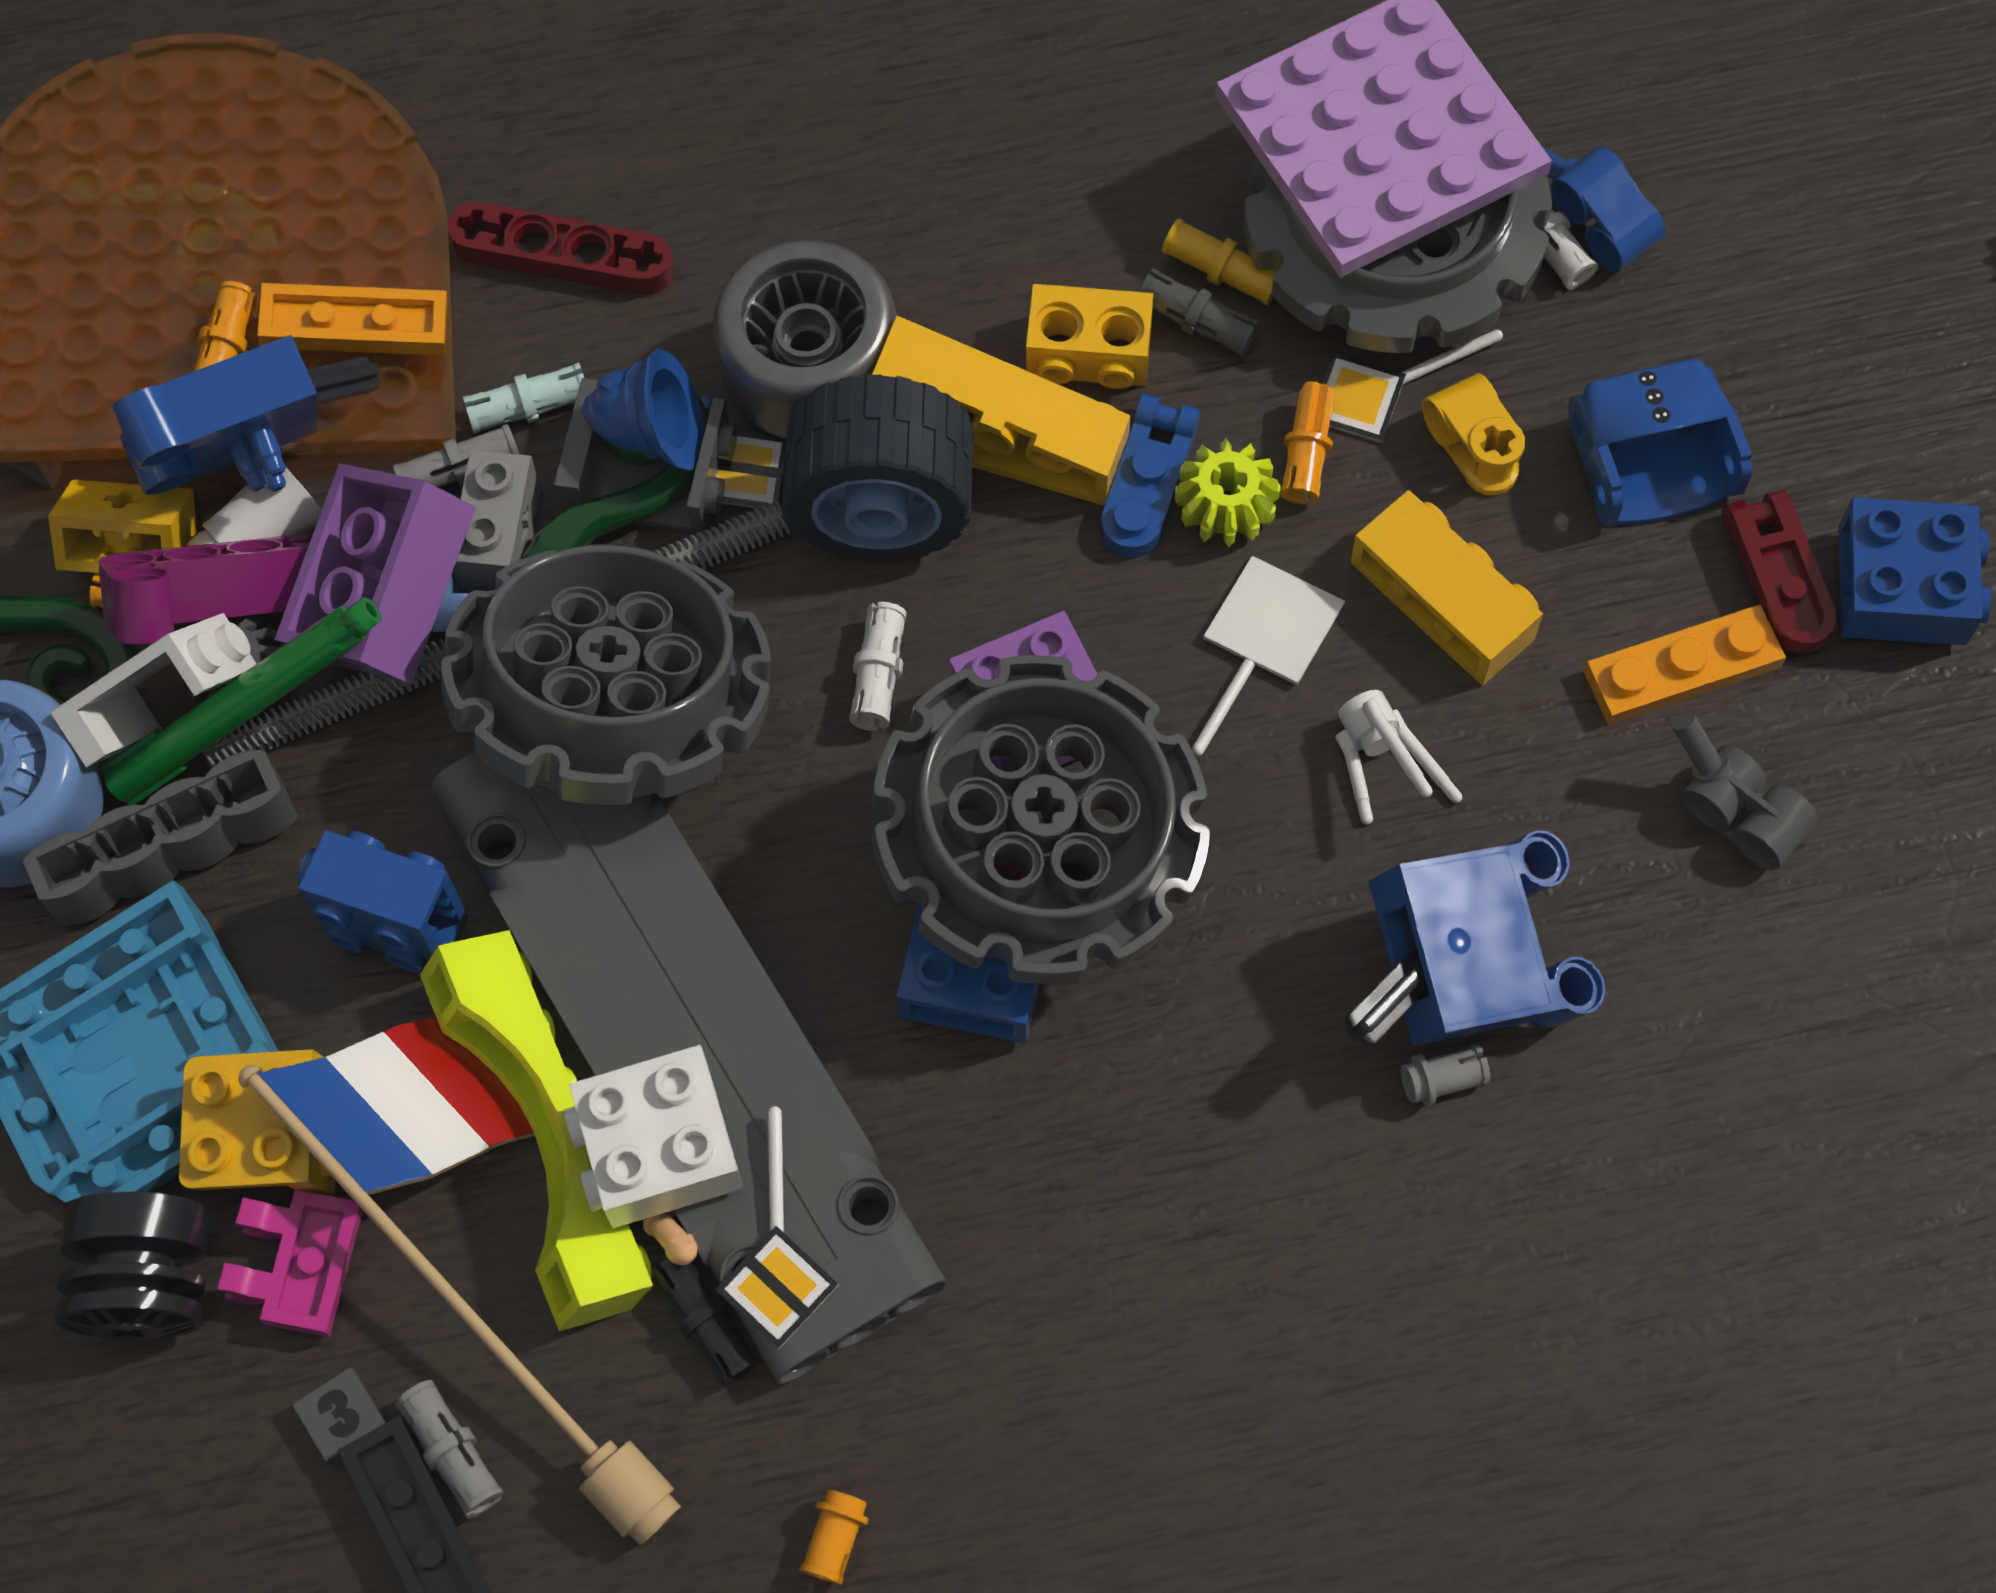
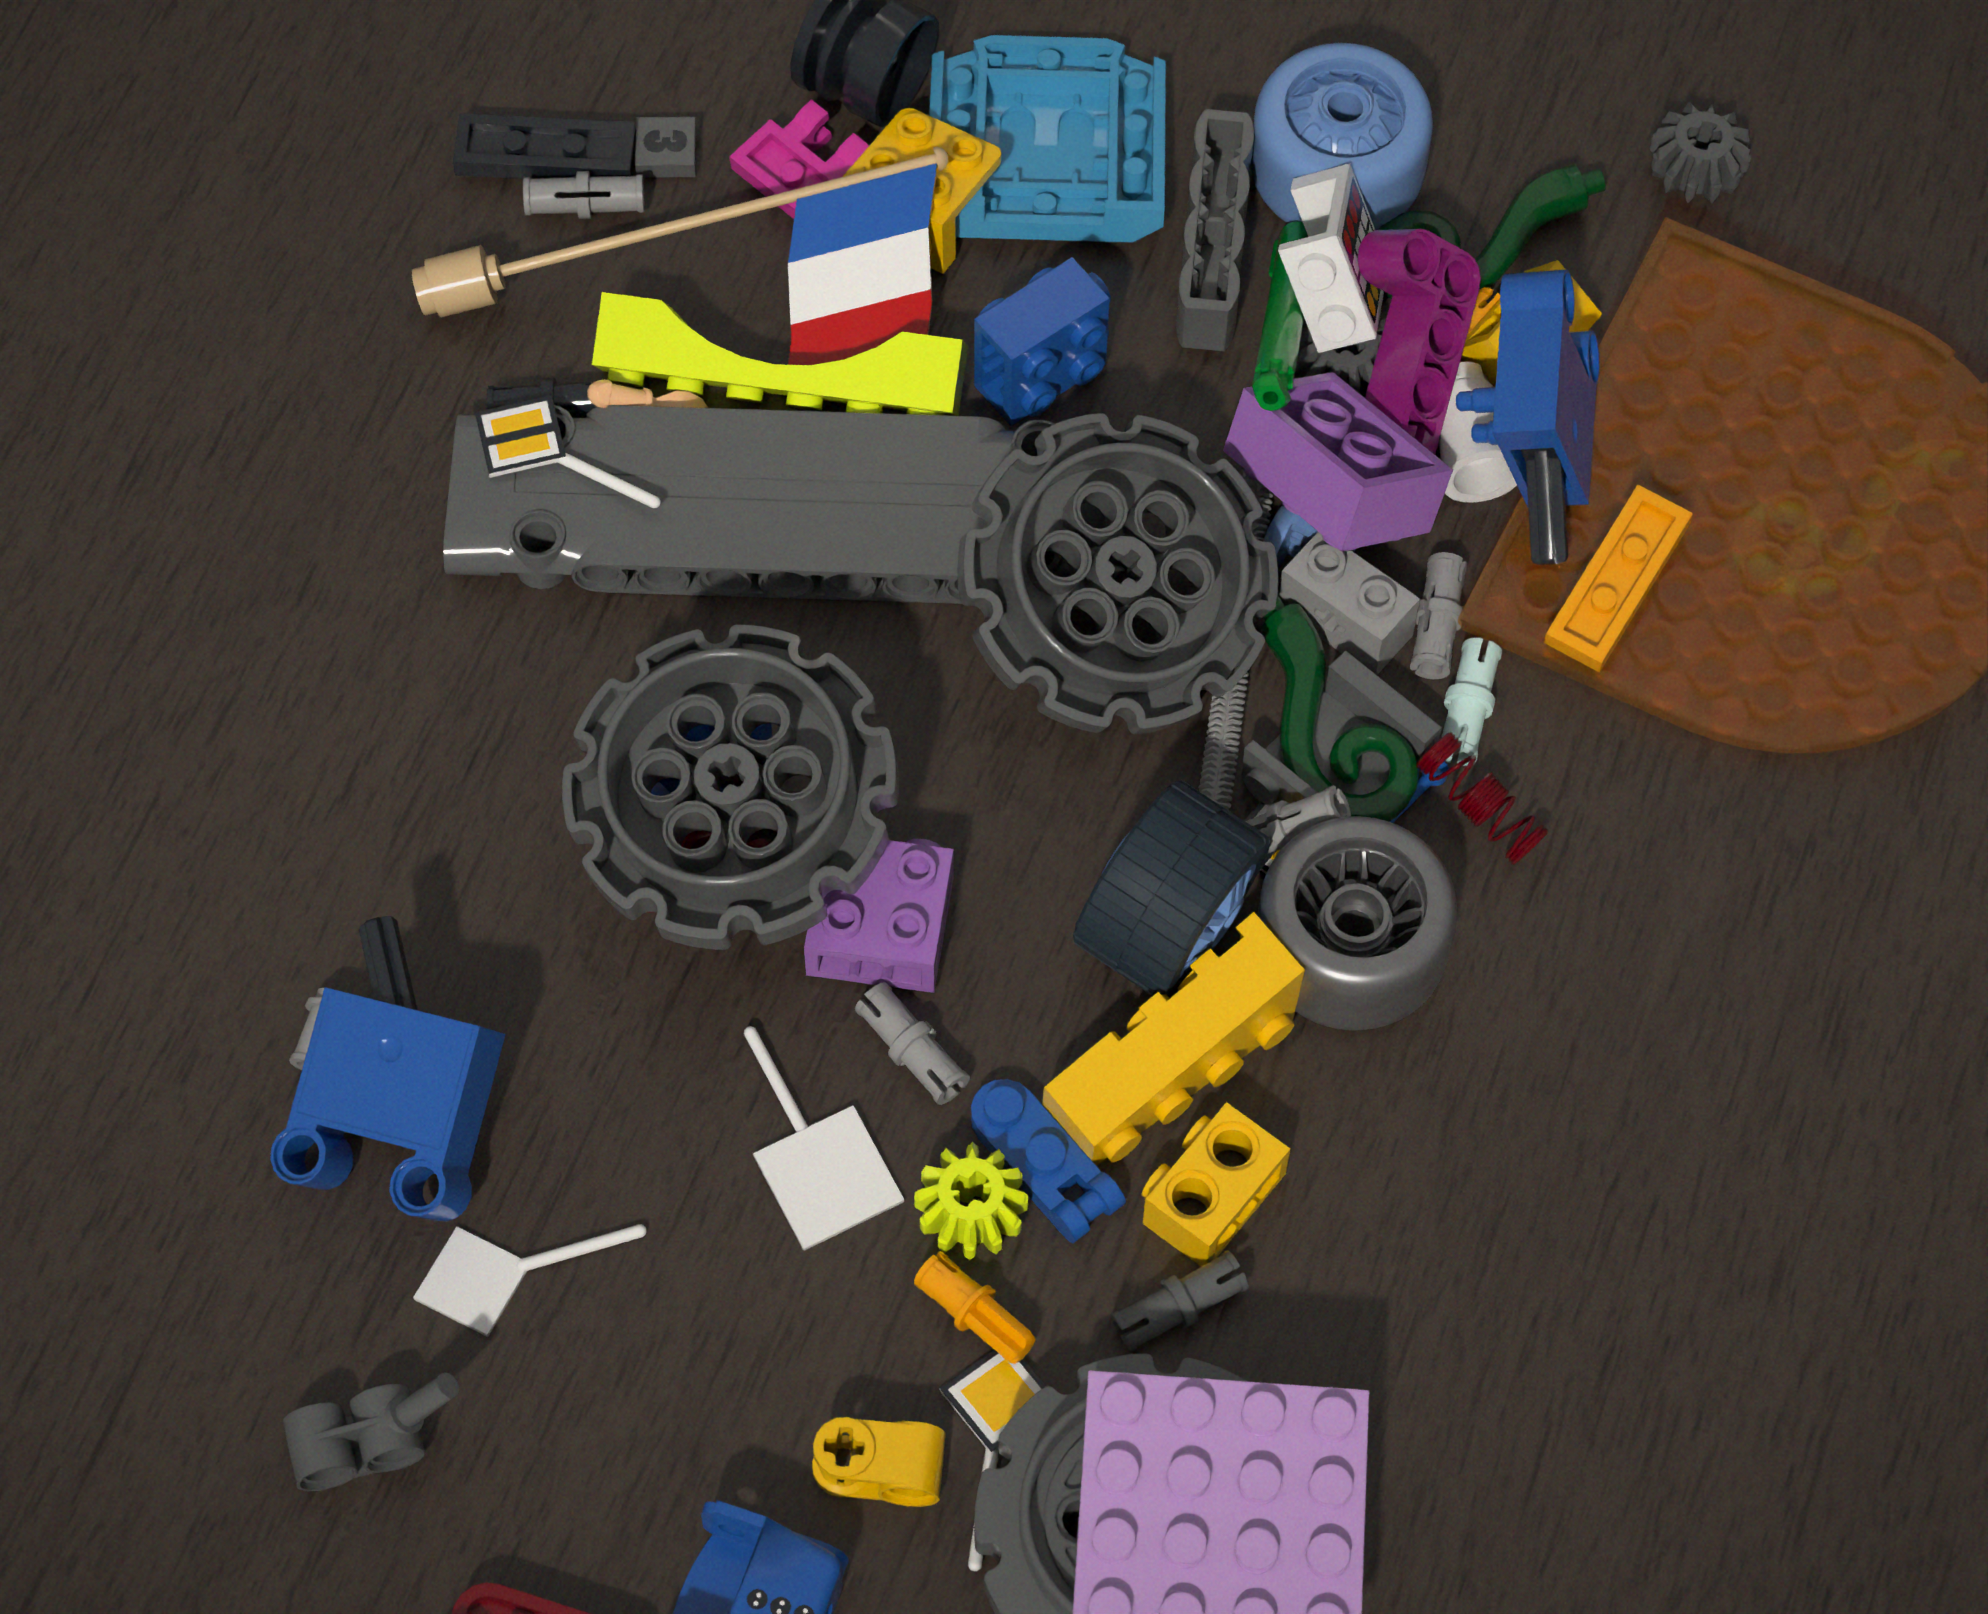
camera: 120 degrees right, 5 degrees down
(227, 326) = (1653, 462): light orange pin -> none
(564, 239) = (1620, 815): dark red beam -> none
(624, 317) = (1481, 799): none -> dark red piece
(649, 411) = (1349, 744): blue piece -> none
(652, 1137) = (688, 398): white brick -> none
(749, 436) = (1287, 820): none -> light grey pin
(834, 1536) = (331, 407): light orange pin -> none
(877, 666) = (1008, 824): white pin -> none
(1123, 616) = (912, 1043): none -> light grey pin
(1219, 260) = (1238, 1346): yellow pin -> none
(1376, 729) = (660, 1174): white plant -> none
(1446, 586) = (745, 1325): yellow brick -> none
(1554, 808) = (477, 1279): none -> white piece
(1684, 664) = (528, 1490): light orange plate -> none

